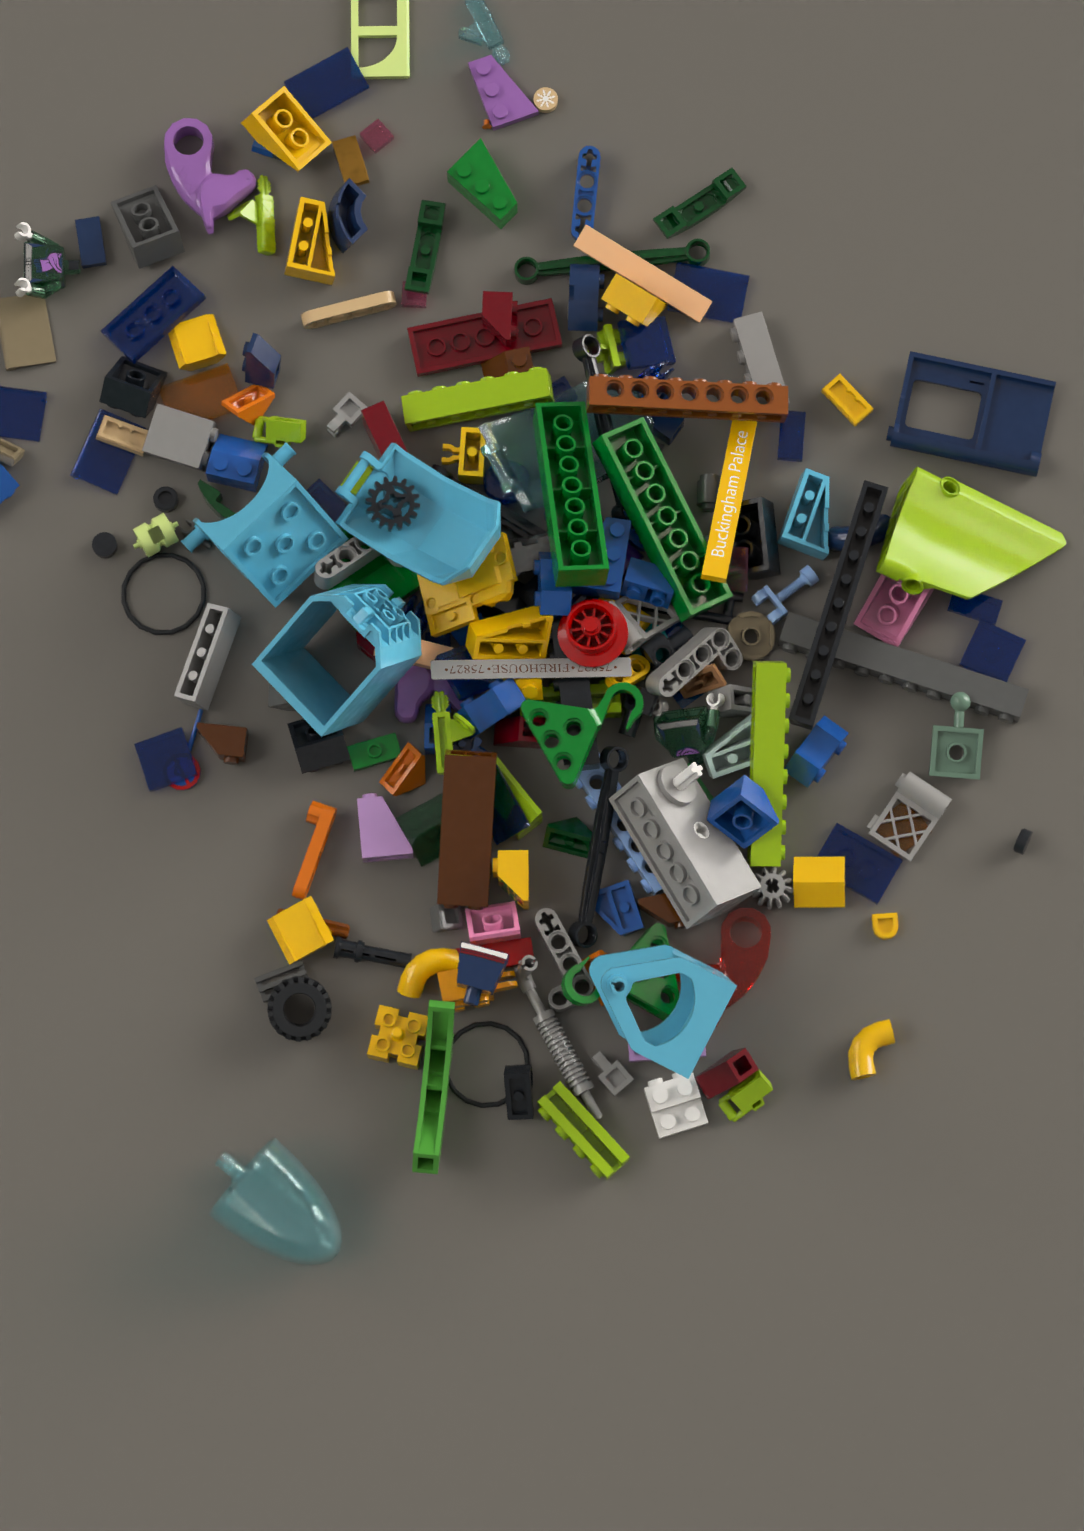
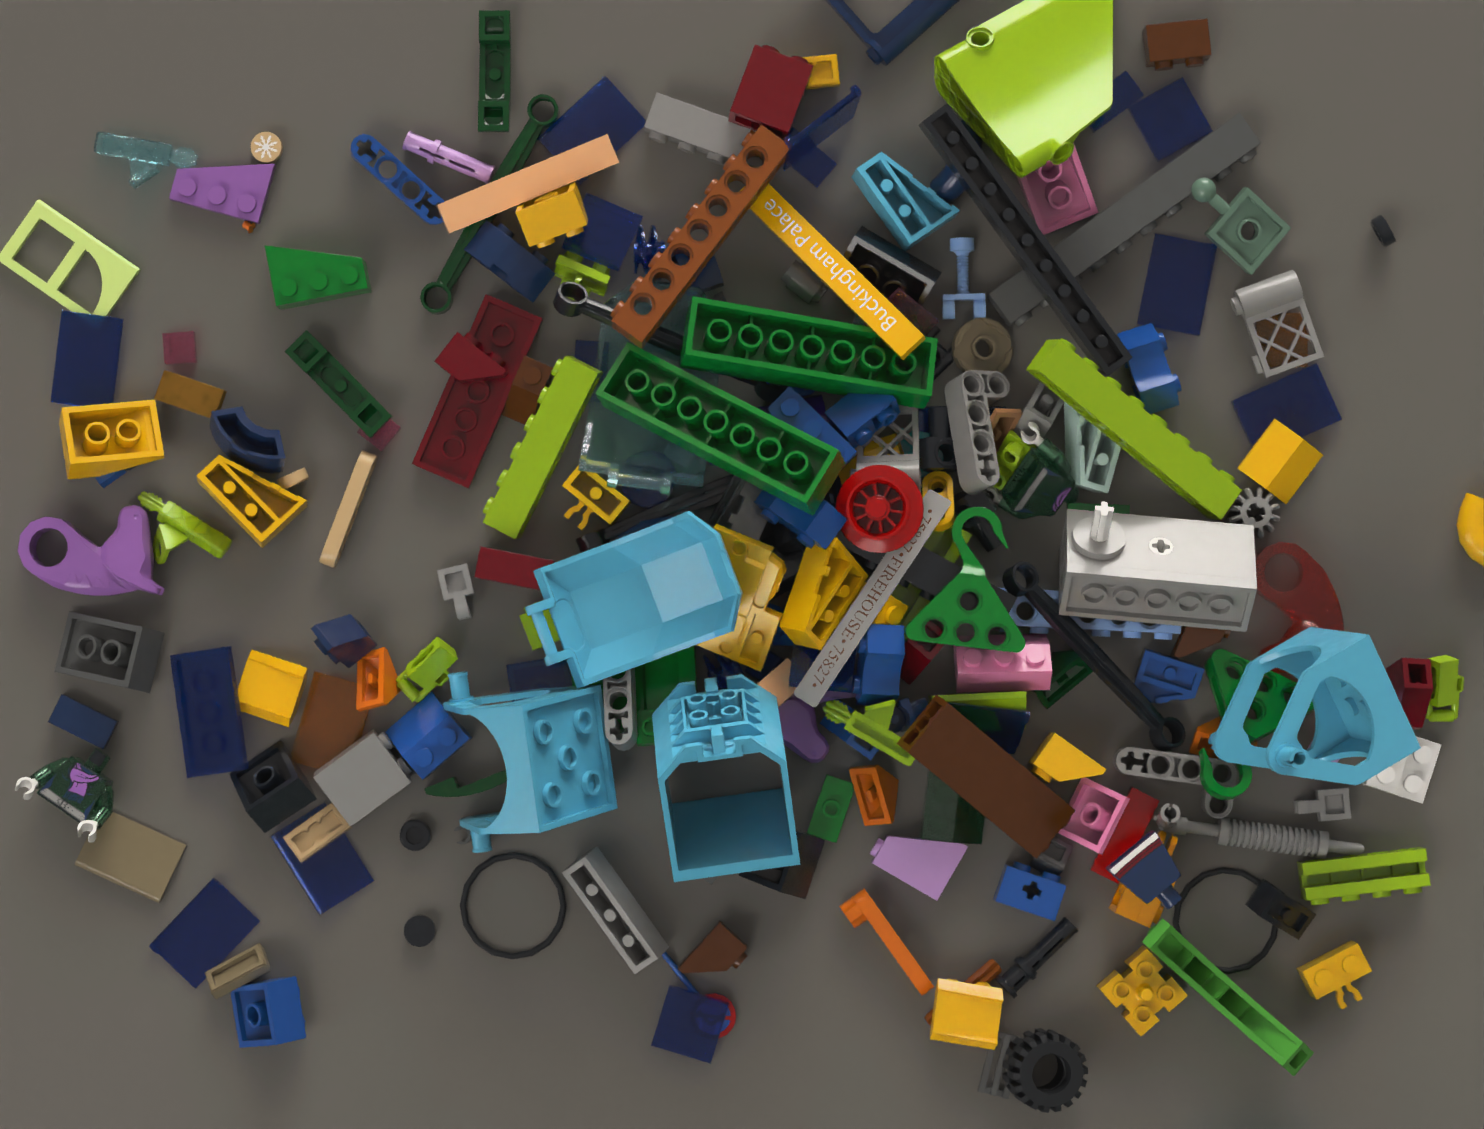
camera: 55 degrees left, 10 degrees up
(155, 535) = (448, 873): yellowish green wheel -> none
(343, 262) = (293, 478): none -> tan tile
(394, 513) = (586, 612): black gear -> none
(406, 903) = (1011, 890): none -> blue brick
(424, 966) = (1090, 915): yellow cylinder -> none
(503, 1156) = (1335, 970): none -> yellow brick
(558, 805) = (1002, 670): none -> bright pink slope
(621, 204) = (436, 152): none -> lavender pin
(687, 699) = (1010, 456): none -> lime hips
(742, 812) = (1169, 491): blue slope -> none
(815, 380) = (770, 91): none -> dark red brick
(815, 428) = (822, 127): none -> clear blue piece
(885, 925) = (1367, 427): yellow tile -> none
(887, 734) = (1177, 284): none -> clear blue piece
(1044, 620) = (1177, 44): none -> reddish brown piece

